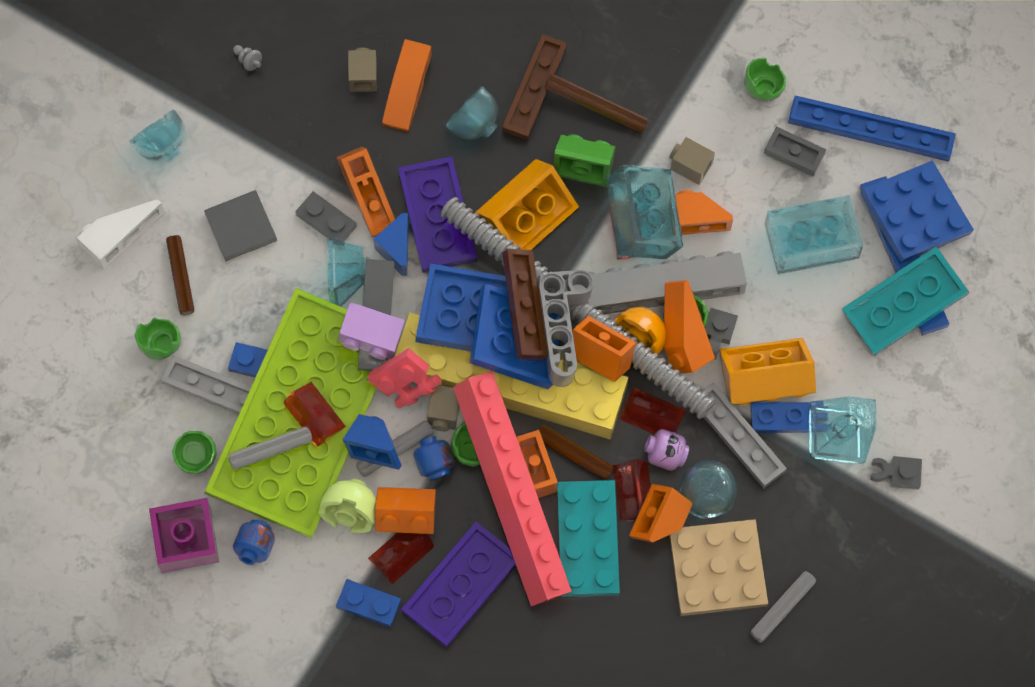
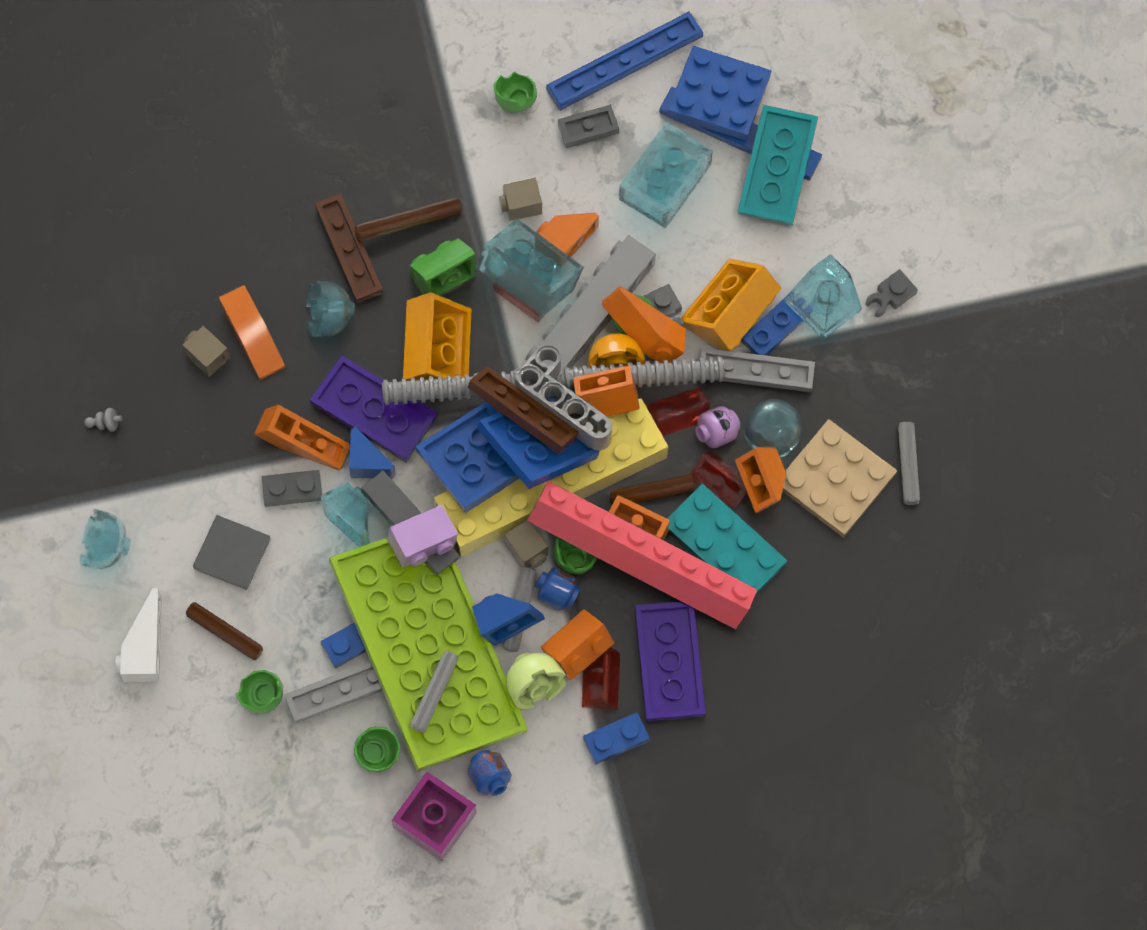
camera: 45 degrees left, 0 degrees up
(314, 412) = (438, 636): clear red slope -> none
(399, 372) = (473, 549): coral plate -> none

